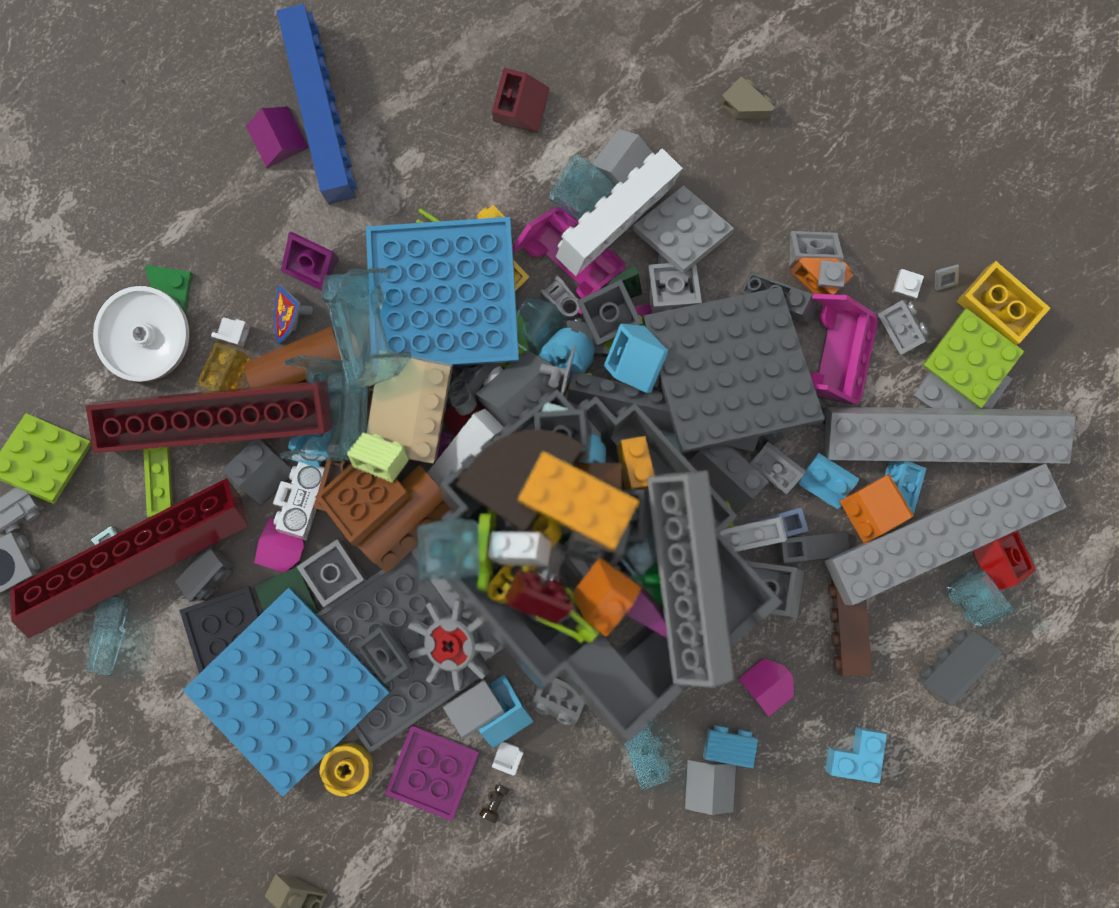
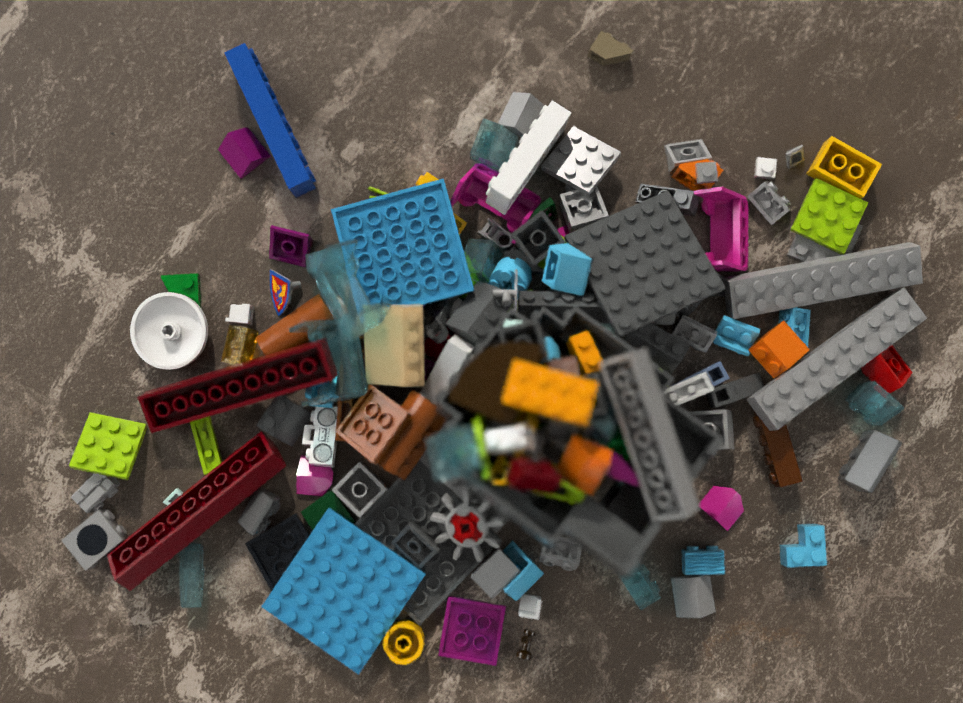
camera: 10 degrees left, 0 degrees up
(378, 456) = (379, 389): yellowish green brick -> none
(520, 100) = (431, 85): dark red slope -> none

